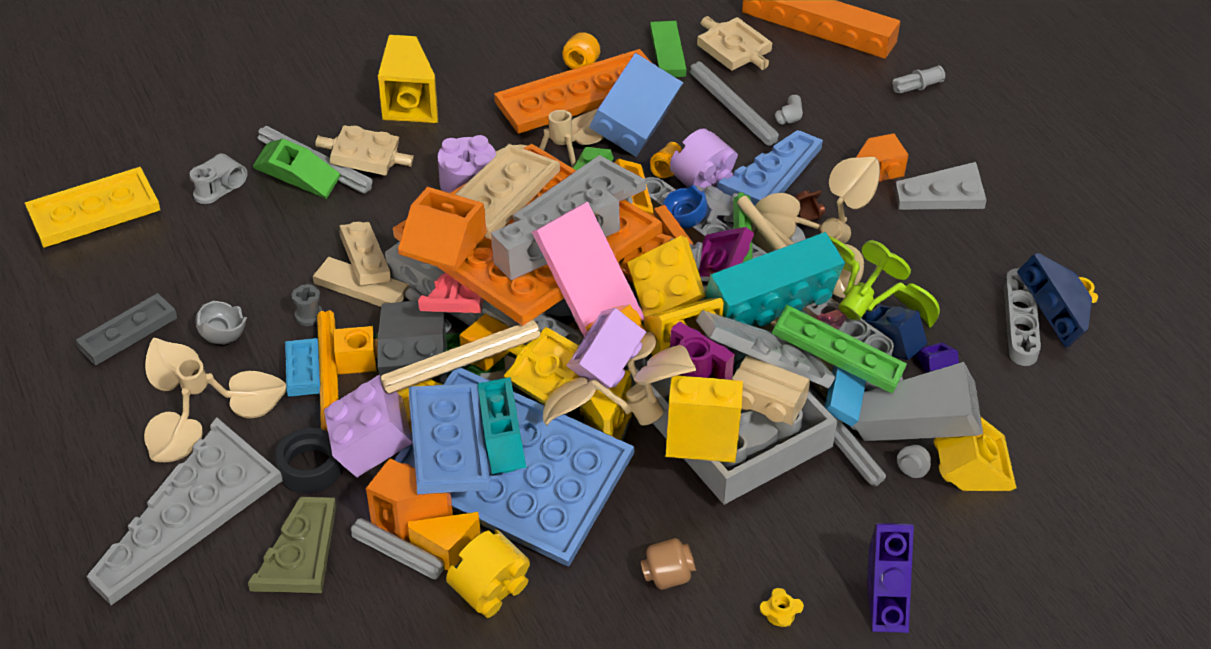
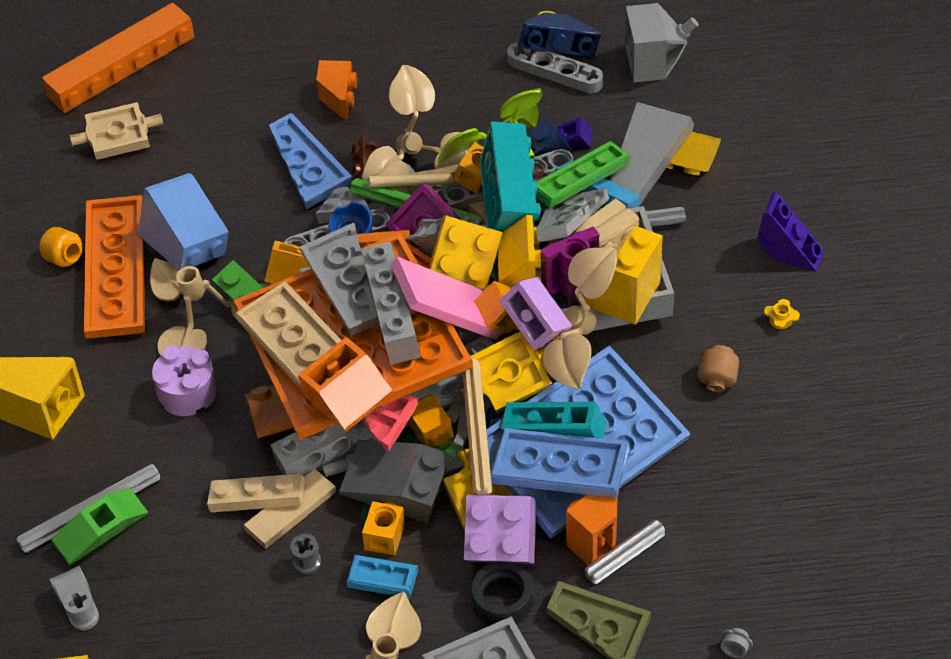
camera: 65 degrees left, 5 degrees up
(220, 322) = (297, 629): light grey hair -> none
(327, 363) = (426, 564): light orange axle -> none
(364, 150) = (105, 460): tan plate -> none
(445, 535) = (636, 510): light orange slope -> none
(489, 572) = (690, 484): yellow brick -> none
(661, 160) = (253, 230): light orange cone -> none
(668, 47) = (88, 182): bright green tile -> none
(703, 160) = (284, 200): lavender brick -> none
(734, 103) = (196, 159): light grey axle -> none
(791, 112) = (235, 121): light grey arm -> none
(914, 461) = (676, 185): light grey plate -> none
(919, 79) = (244, 23): light grey axle -> none
(944, 189) = (385, 56): light grey wing -> none
(1100, 374) = (654, 41): none -> light grey piece

